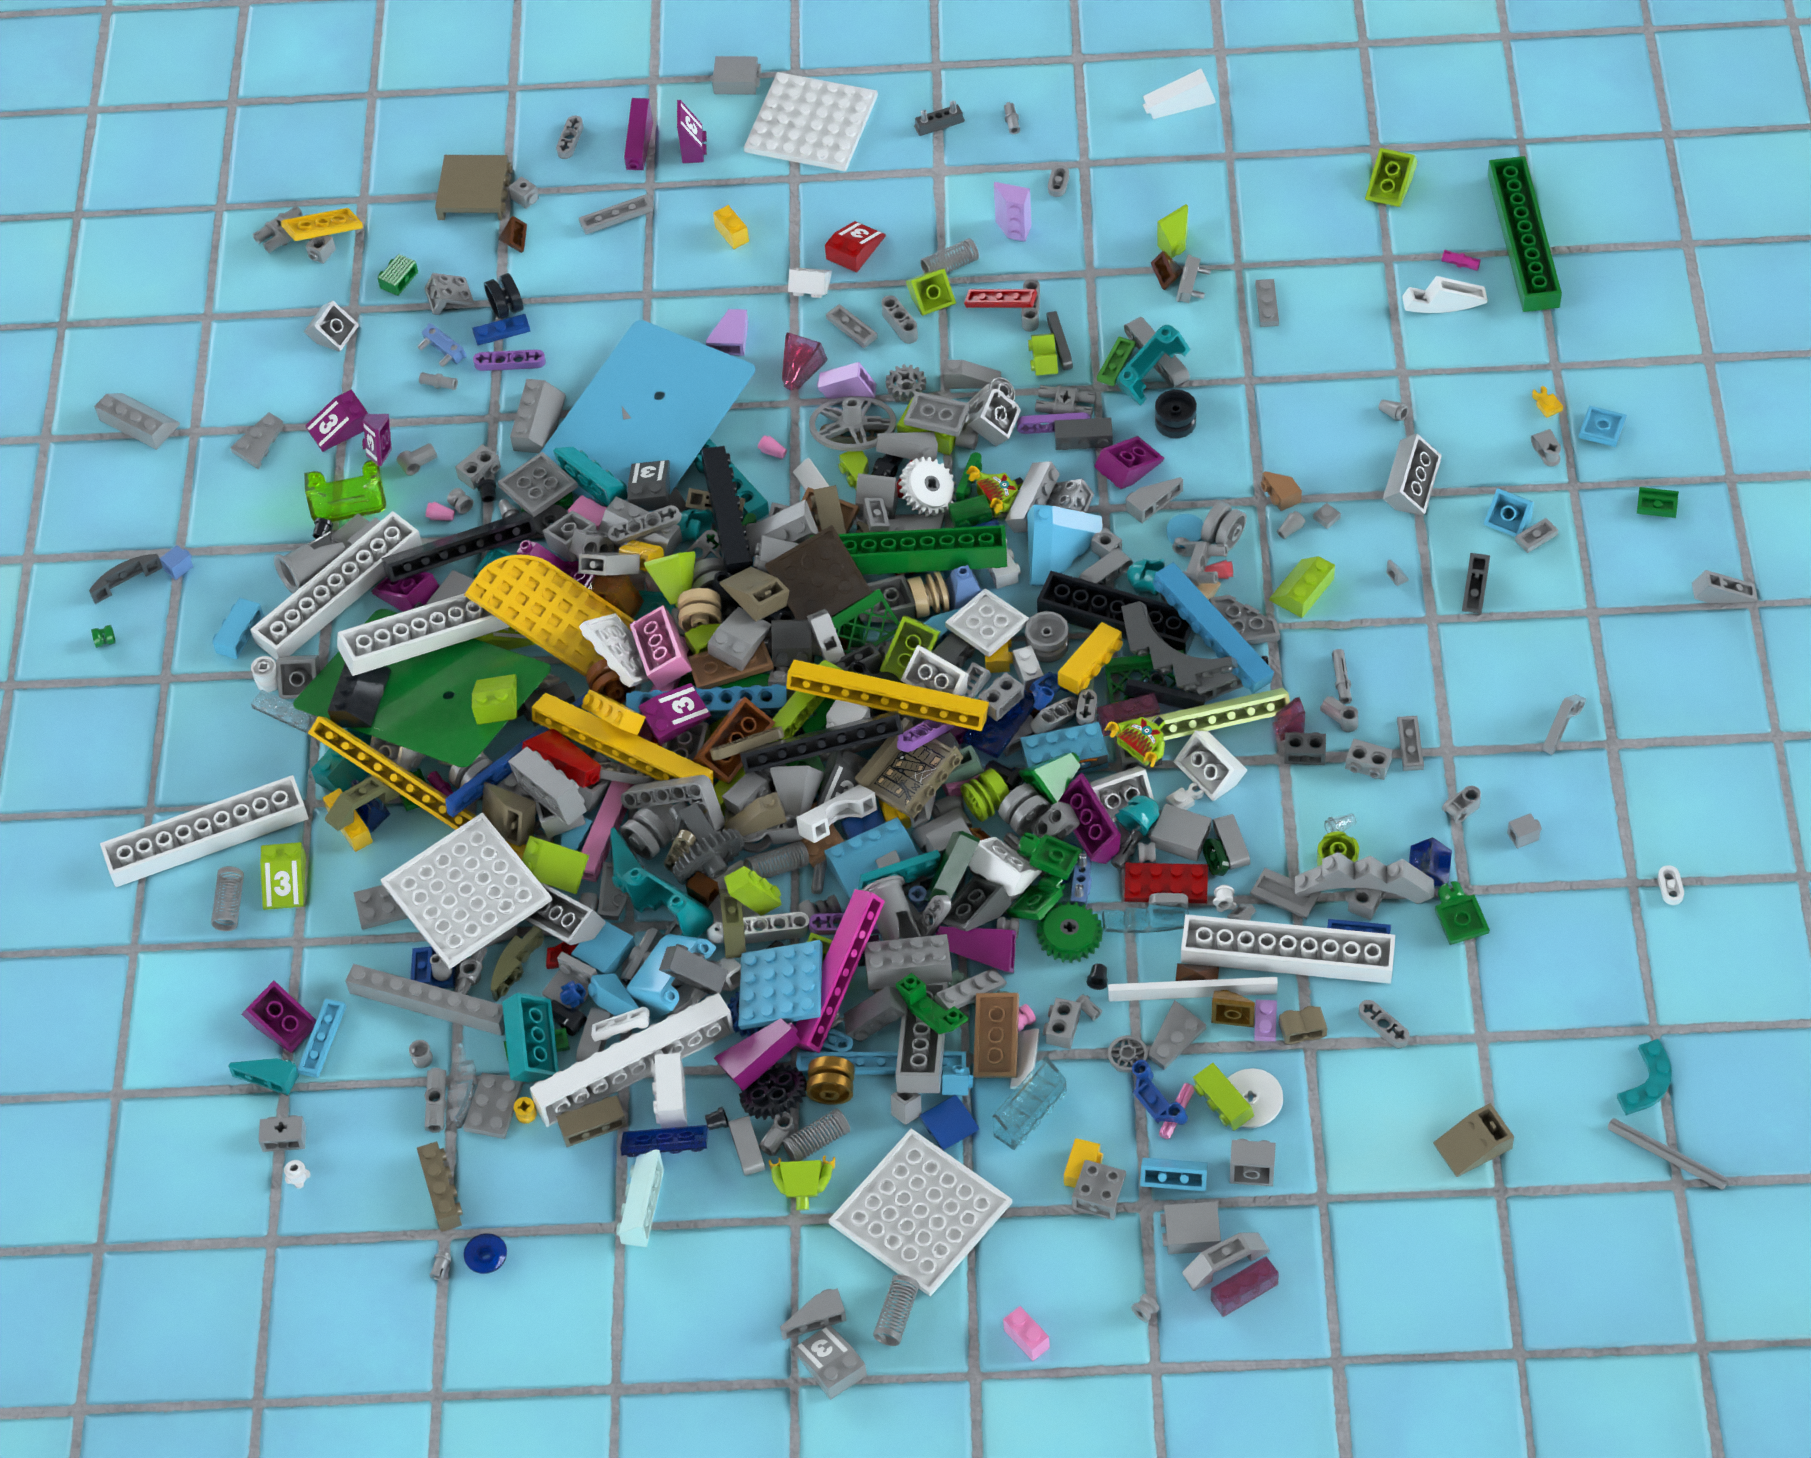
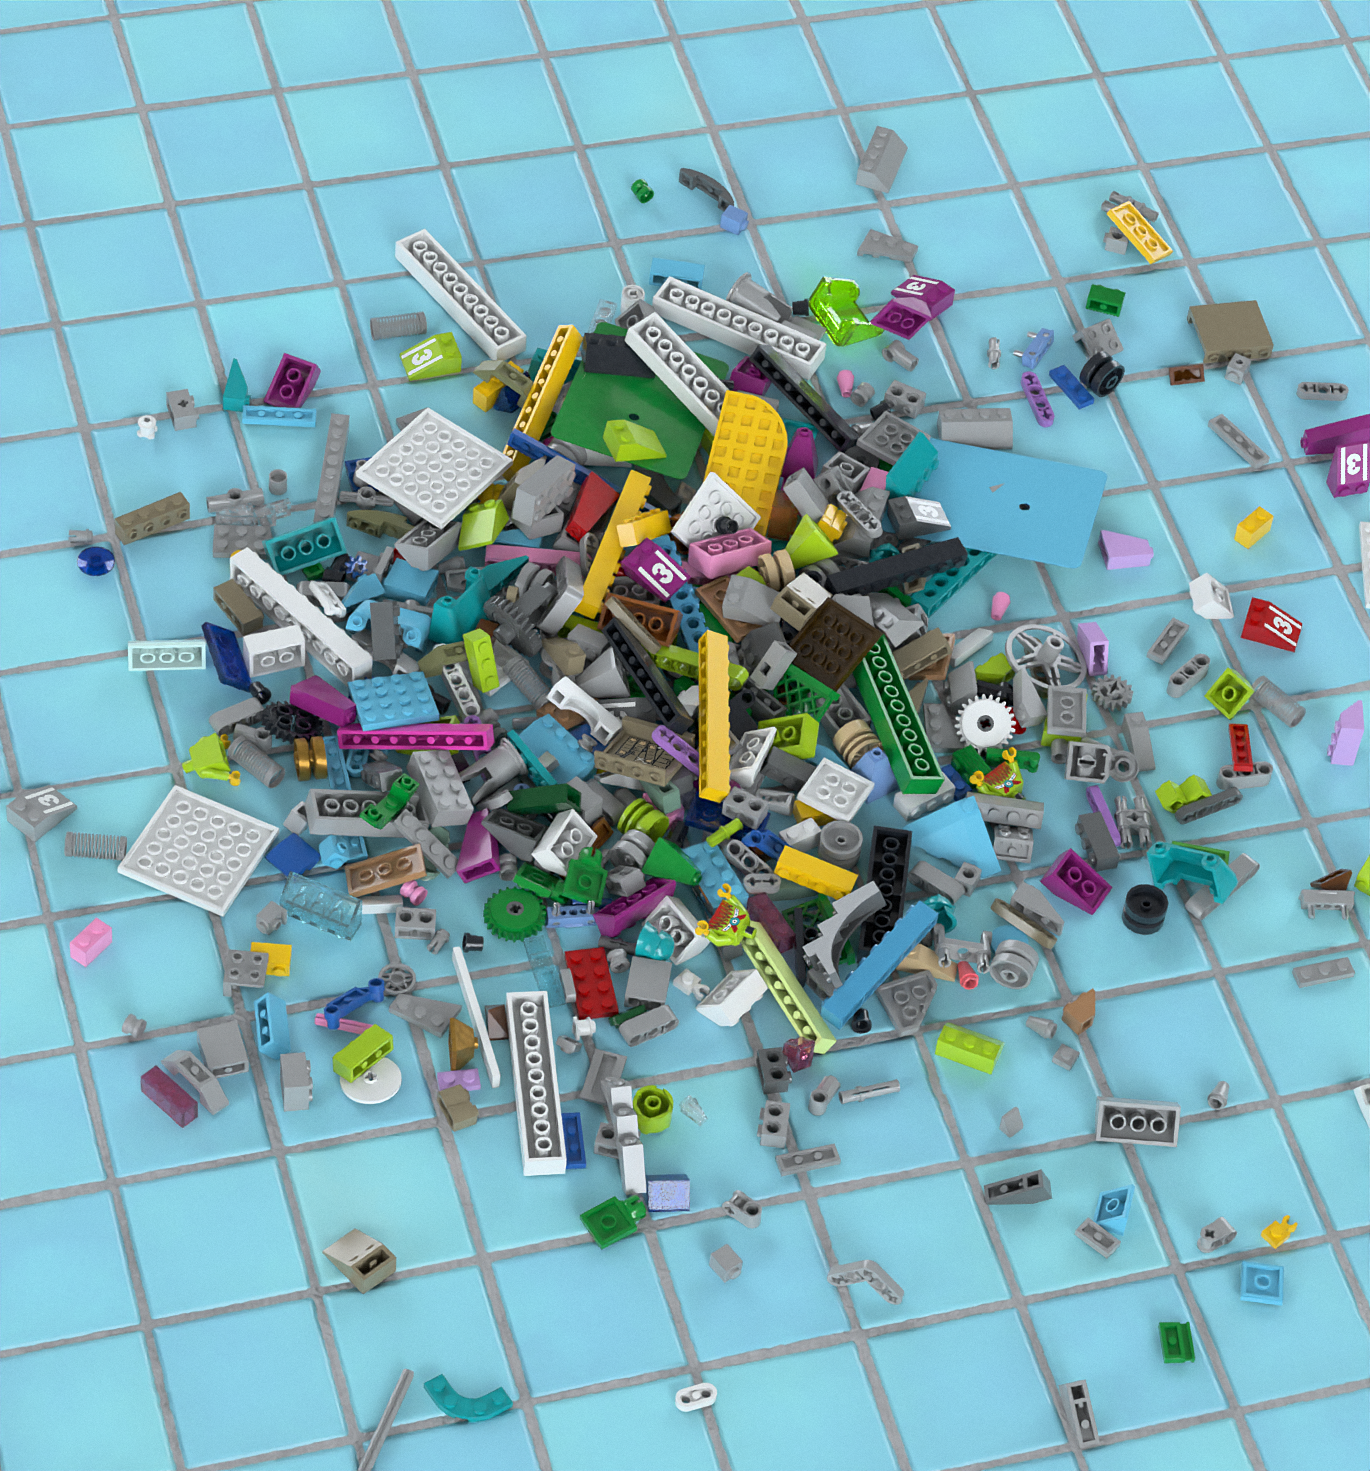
camera: 65 degrees right, 5 degrees down
(331, 327) = (1027, 267): light grey slope -> none
(630, 639) = (722, 525): none -> black piece
(801, 360) = (1106, 606): clear pink slope -> none
(816, 1314) = (83, 793): light grey slope -> none
(875, 514) = (935, 688): light grey slope -> none
(875, 821) = (587, 742): none -> light grey bush
(1024, 722) = (724, 832): none -> lime axle
(1028, 1156) = (271, 918): none -> light grey brick
(1168, 512) = (1023, 923): none -> dark tan beam
(1381, 1014) = (476, 1183): light grey beam -> none

